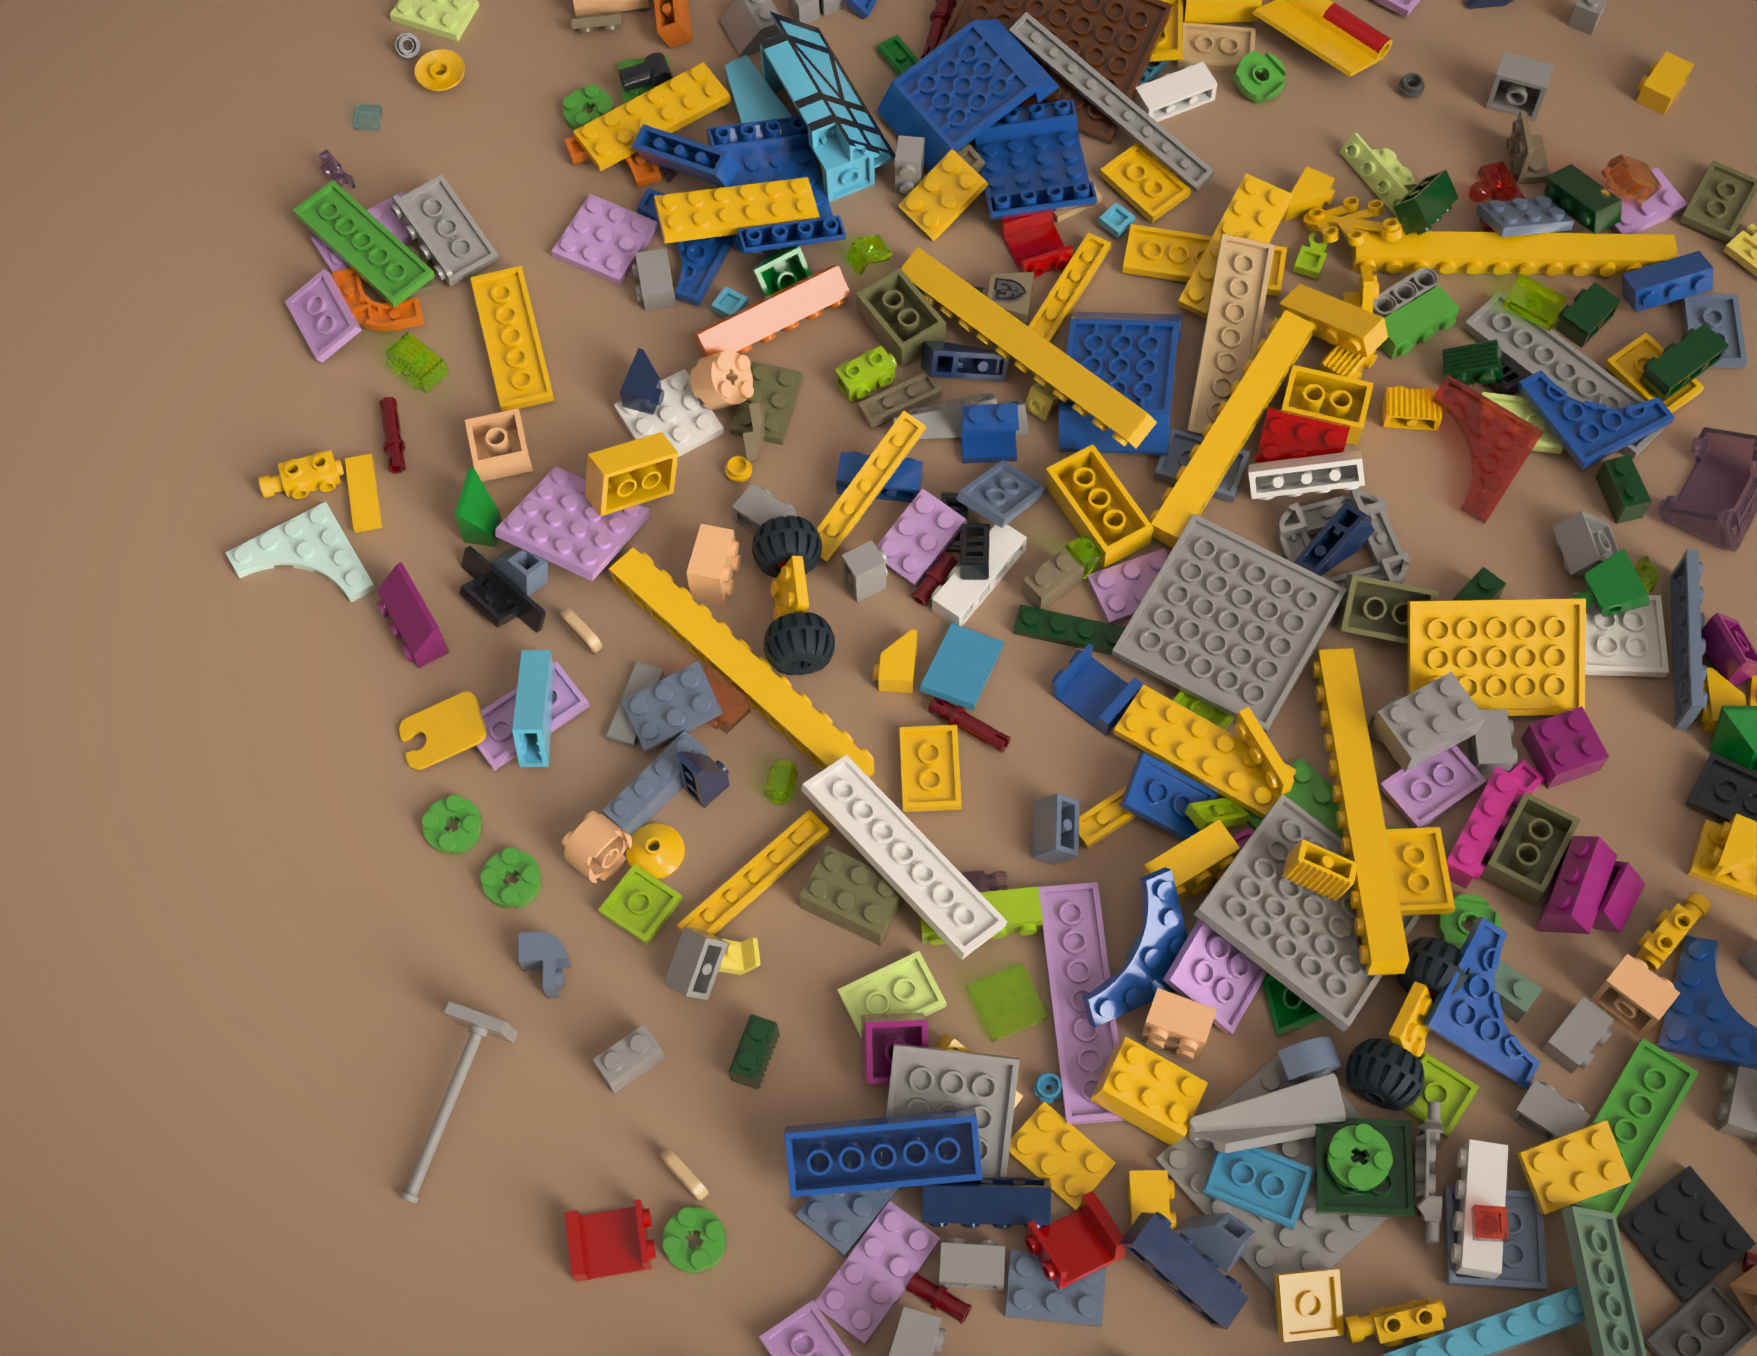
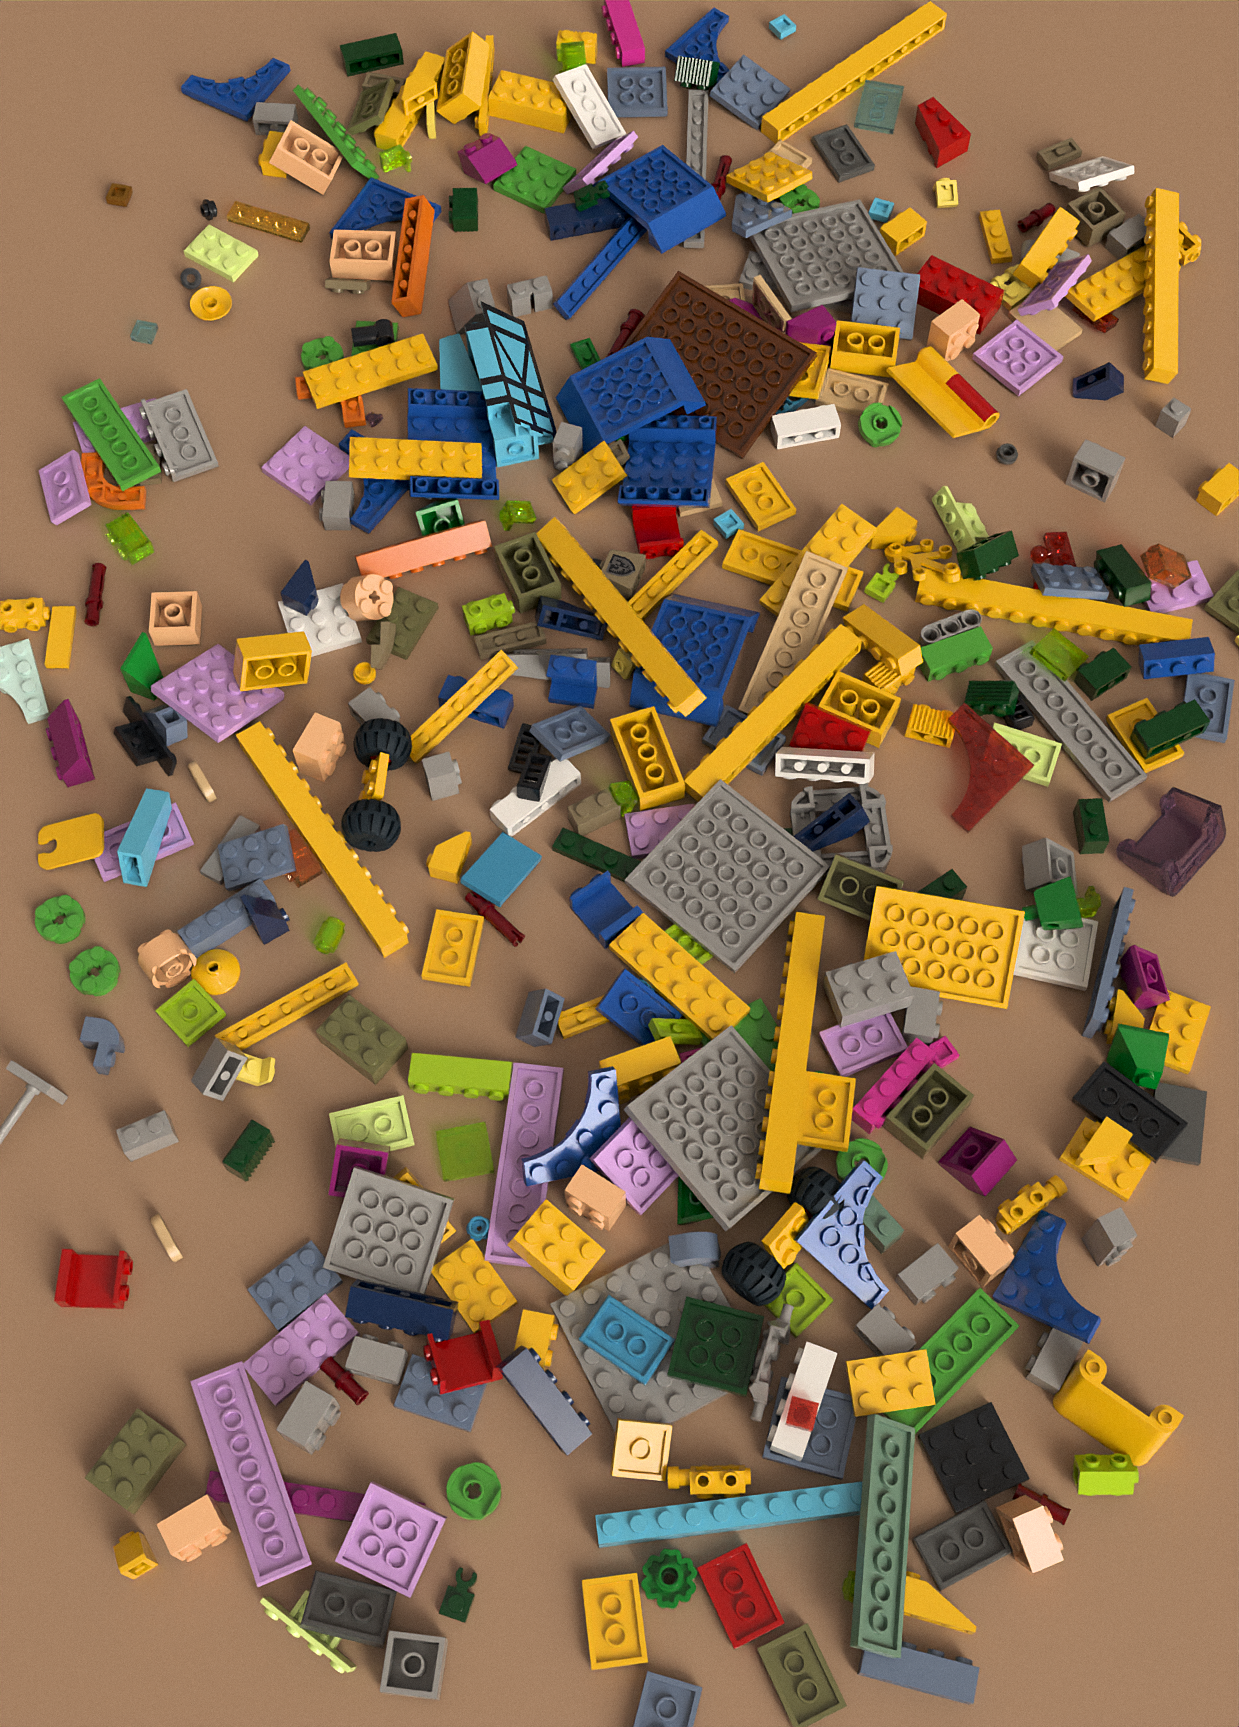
camera: 10 degrees right, 0 degrees up
(333, 169) = (104, 370): plate -> none
(512, 339) = (210, 533): yellow plate -> none
(685, 156) = (385, 408): blue brick -> none
(711, 1233) = (158, 1278): bright green plate -> none
(729, 302) = (392, 535): medium azure plate -> none
(883, 1153) = (324, 1253): blue brick -> none
(904, 856) = (407, 1016): white plate -> none
(920, 536) = (494, 756): lavender plate -> none
(934, 578) = (497, 792): dark red pin -> none
(985, 882) = (467, 1048): plate -> none
(1111, 102) = (747, 425): light grey plate -> none
(1219, 1237) = (580, 1379): sand blue slope -> none
(1263, 752) = (722, 987): yellow plate -> none
(1271, 1117) = (648, 1289): light grey wedge -> none
(1319, 870) = (739, 1094): yellow brick -> none
(1365, 1140) = (703, 1350): bright green plate -> none
(1367, 290) = (913, 626): yellow bracket -> none
(1527, 153) = (1089, 529): dark tan bracket -> none
(1564, 747) = (981, 1032): magenta brick -> none
(1577, 887) = (957, 1151): magenta slope -> none
(1589, 428) = (1077, 771): blue plate -> none

